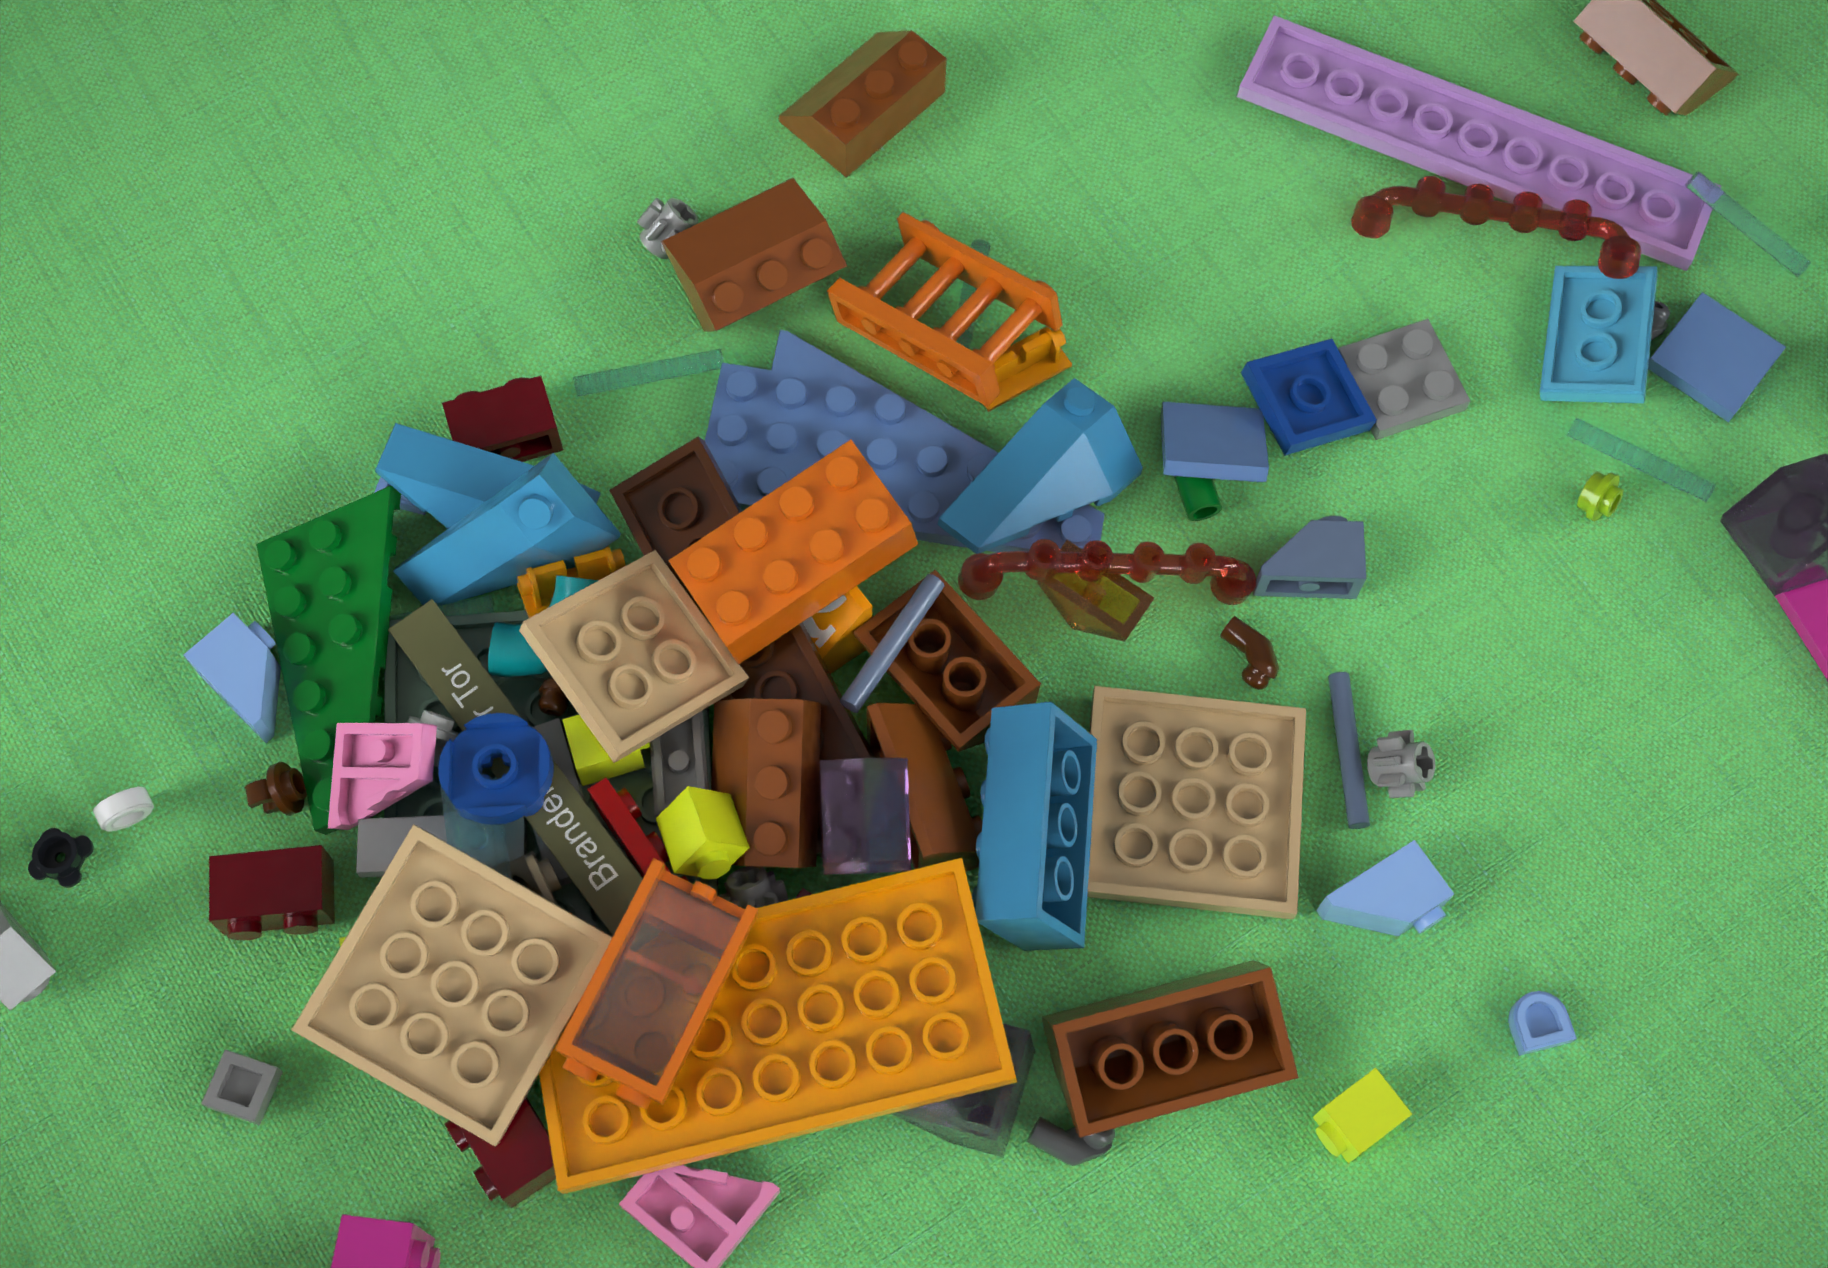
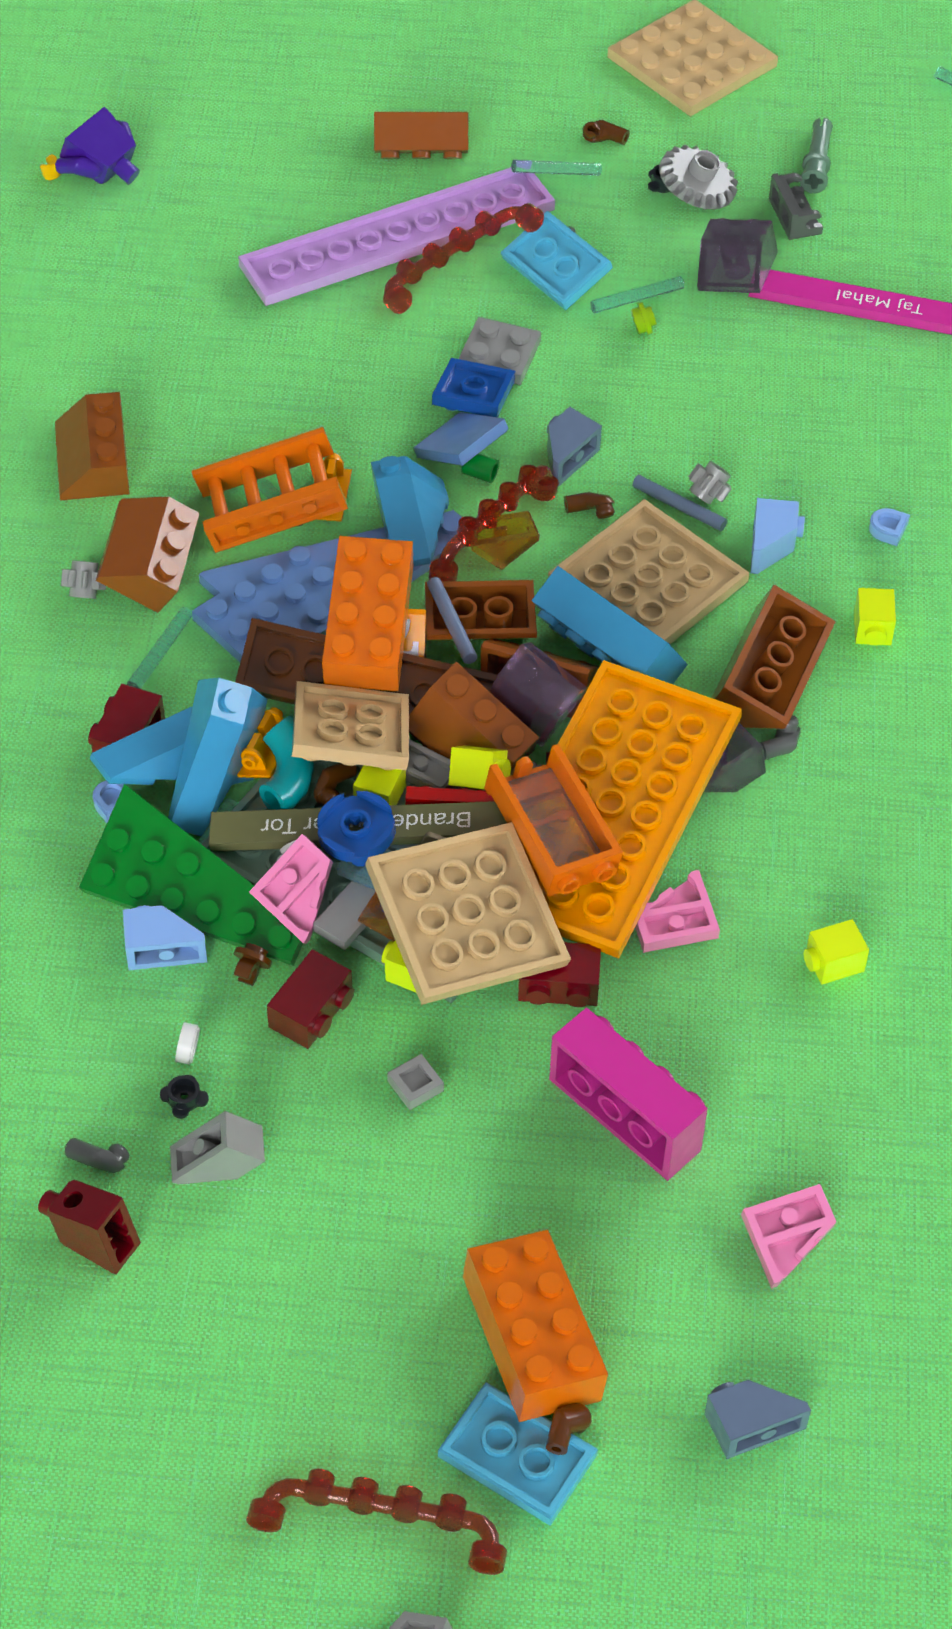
camera: 50 degrees left, 15 degrees down
(1715, 357) = (613, 229): medium blue tile -> none

